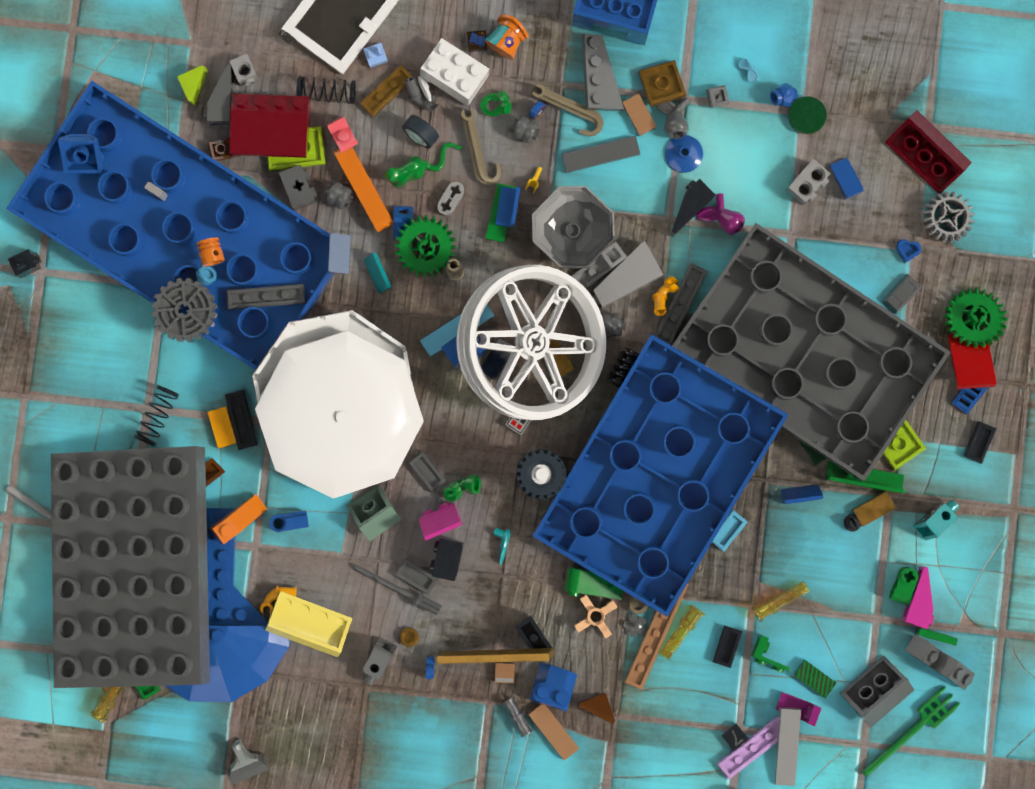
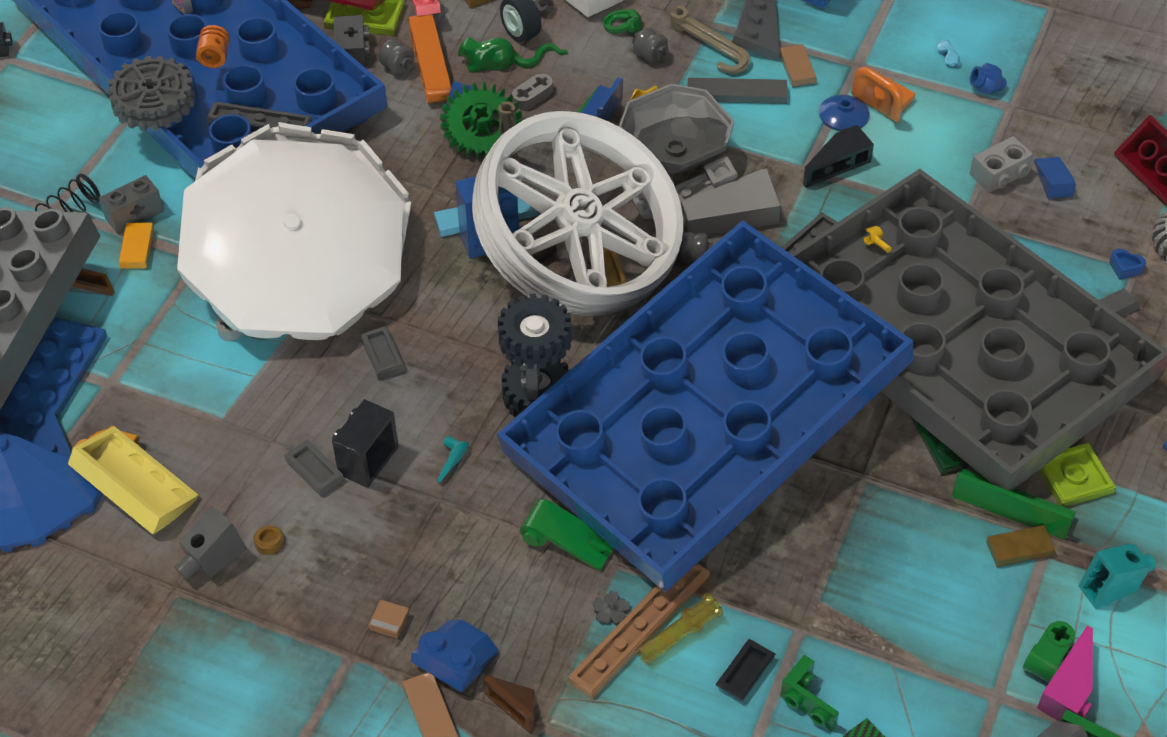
camera: 15 degrees right, 35 degrees down
(205, 396) = (131, 203): none -> dark grey brick
(206, 275) = (198, 73): dark azure tile -> none
(238, 519) = (99, 333): orange slope -> none
(241, 419) = (164, 245): black tile -> none
(291, 521) = (160, 358): blue piece -> none
(339, 253) = (368, 84): sand blue slope -> none
(373, 512) = (289, 377): sand green slope -> none
(377, 273) = (410, 138): teal slope -> none
(421, 601) = (302, 493): dark grey piece -> none
(429, 667) = (279, 581): blue tile -> none
(440, 521) = (378, 387): dark pink slope -> none
(454, 491) = (437, 376): green arm -> none
(476, 152) = (581, 53): dark tan piece -> none
(485, 656) = (384, 572): pearl gold tile -> none
(517, 717) = (384, 681): flat silver pin -> none
(532, 634) = (450, 572): black brick -> none
(537, 110) = (673, 33): blue tile -> none
(590, 608) = (554, 565): light nougat pin -> none
(636, 605) = (624, 580): dark tan tile -> none
(661, 295) = (784, 229): light orange piece -> none
(662, 83) = (835, 42): pearl gold tile -> none
(675, 125) = (840, 74): dark grey piece -> none
(712, 131) = (881, 92): none -> orange piece
(717, 96) = (902, 66): dark grey tile -> none
(729, 220) = (881, 175): magenta piece -> none
(730, 529) = (789, 521): medium azure tile -> none
(734, 291) = (876, 237): none -> yellow hand
(772, 605) = (831, 625): clear yellow pin -> none
(801, 494) = (912, 503): blue slope -> none
(807, 115) = (1014, 107): dark green tile -> none
(852, 523) = (983, 555): black piece -> none

